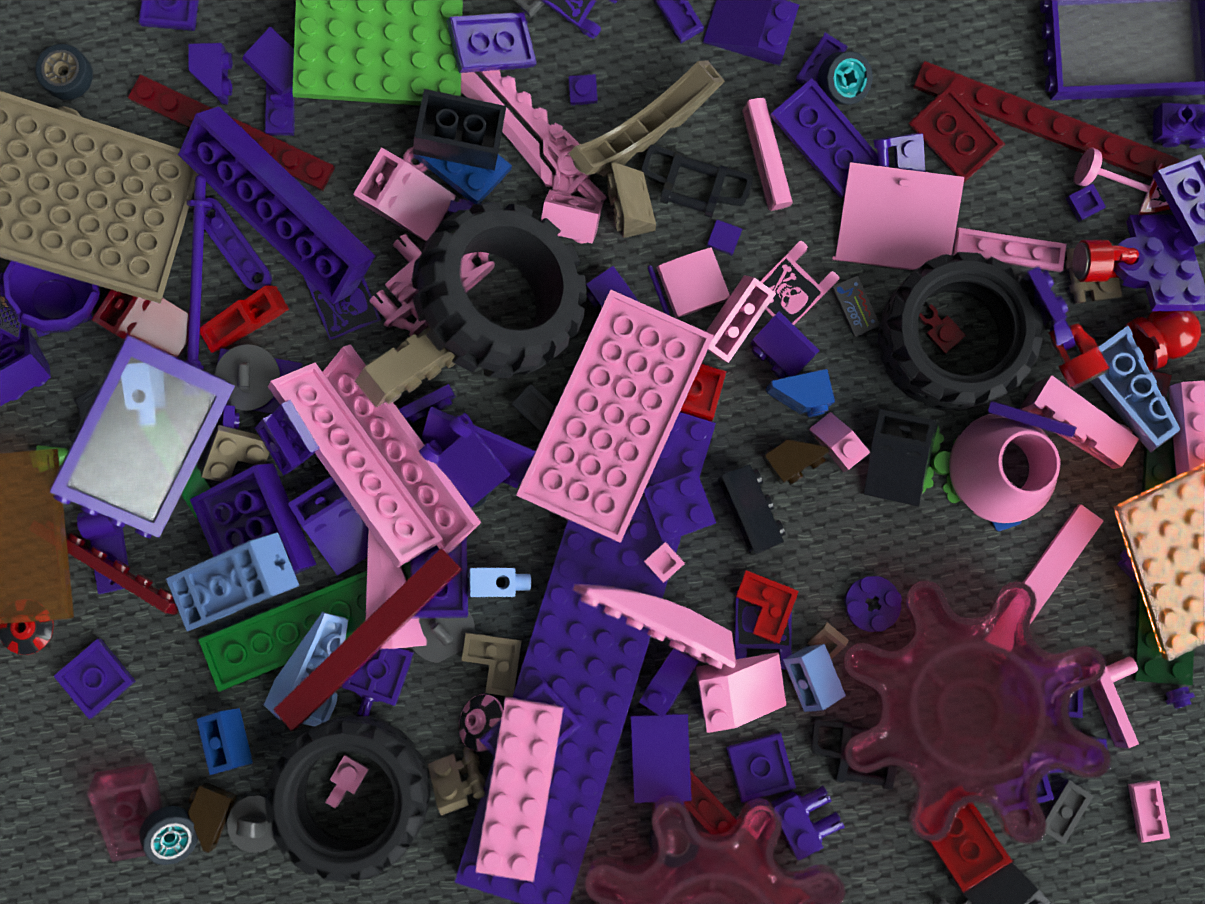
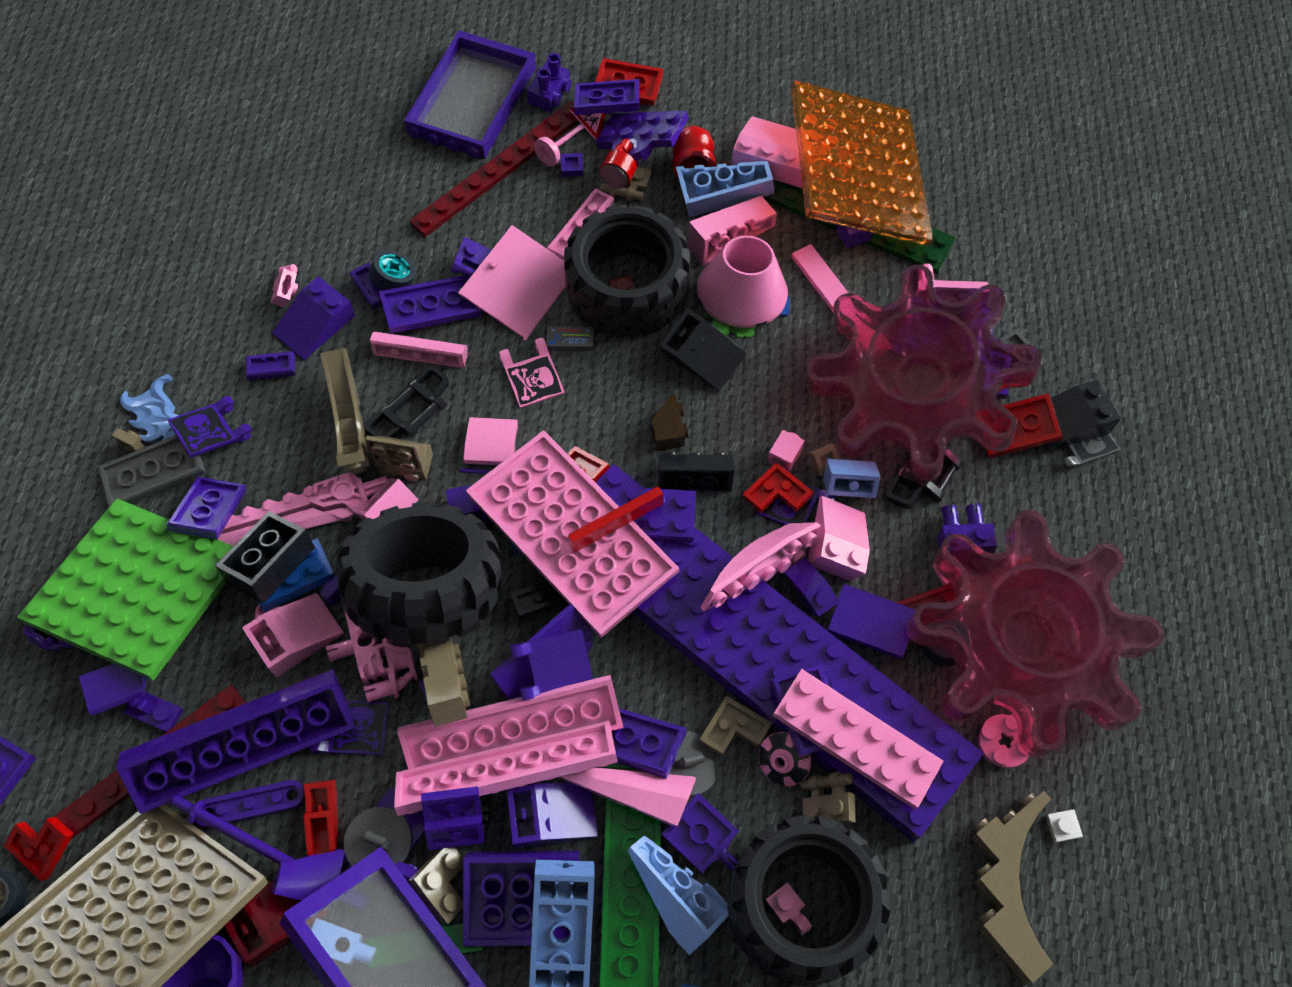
camera: 70 degrees left, 20 degrees down
(115, 87) = (42, 850): none -> red plate
(185, 334) = (306, 875): none -> dark purple slope
(210, 67) = (80, 756): dark purple slope -> none
(367, 639) = (672, 821): dark red tile -> none
(438, 399) = (483, 680): dark purple plate -> none
(483, 582) = (666, 693): light blue torso -> none
(583, 89) = (288, 459): dark purple plate -> none
(640, 456) = (615, 519): none -> red tile
(664, 562) = (710, 542): bright pink plate -> none
(724, 237) = (467, 405): dark purple tile -> none
(738, 317) = (535, 412): bright pink brick -> none
(761, 767) = (908, 552): dark purple tile -> none
(783, 347) = (577, 393): dark purple slope -> none
(804, 393) = (621, 393): blue slope -> none
(820, 595) = (786, 450): none -> bright pink brick
(841, 441) = (672, 382): bright pink slope -> none
(888, 599) = (811, 406): dark purple plate -> none
(956, 133) = (475, 219): dark red tile -> none
(1032, 419) = (716, 246): dark purple tile -> none
(1063, 337) = (643, 194): plate -> none
(1148, 811) = (1040, 299): bright pink plate -> none
(1179, 697) = (962, 248): dark purple plate -> none

